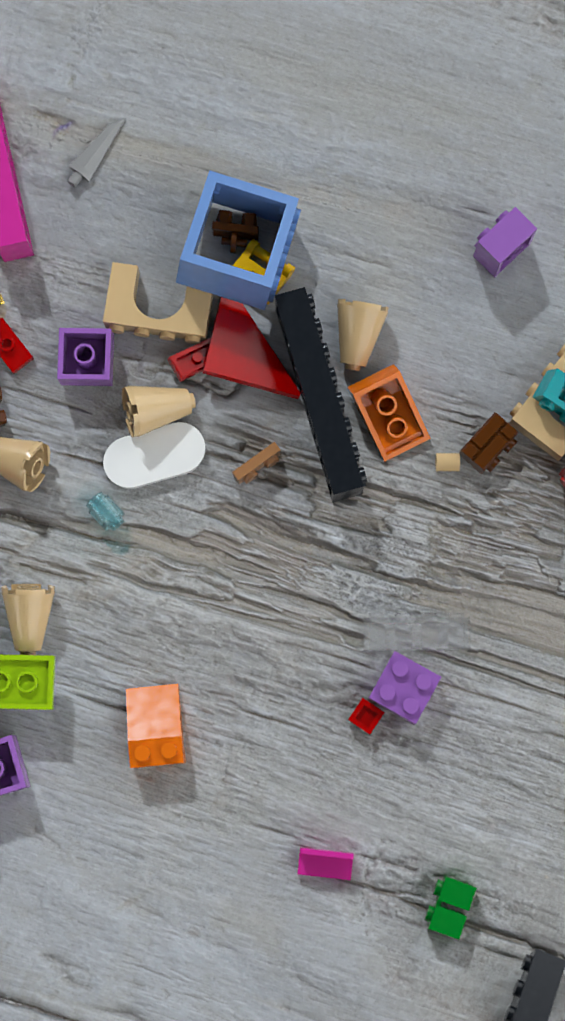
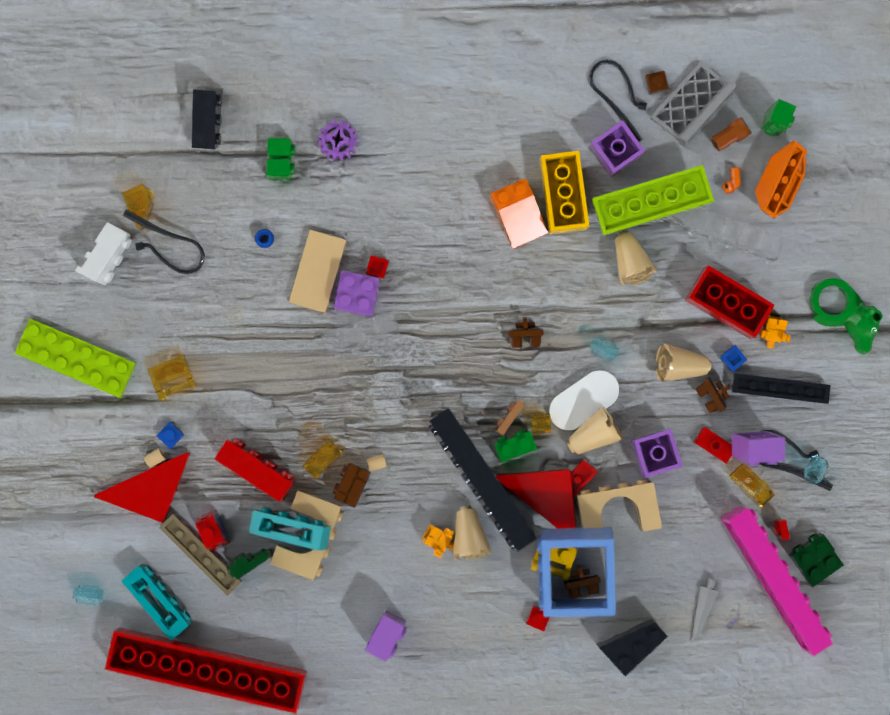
camera: 155 degrees right, 5 degrees up
(85, 732) = (564, 192): none -> yellow brick
(190, 558) = (534, 335): none -> reddish brown hips
(199, 134) = (632, 646): none -> black wedge
(220, 442) = (540, 423): none -> clear yellow plate
(263, 424) = (515, 446): none -> green brick
(308, 204) = (536, 619): none -> red plate
(325, 863) = (373, 161): dark pink panel -> none
(355, 922) = (330, 139): none -> medium lavender gear
(389, 412) = (429, 484): orange slope -> none
(400, 340) = (438, 539): none -> light orange piece
(447, 737) = (317, 271): none -> tan tile
(513, 805) = (264, 232): none -> blue plate
(515, 489) = (322, 459): none -> clear yellow slope

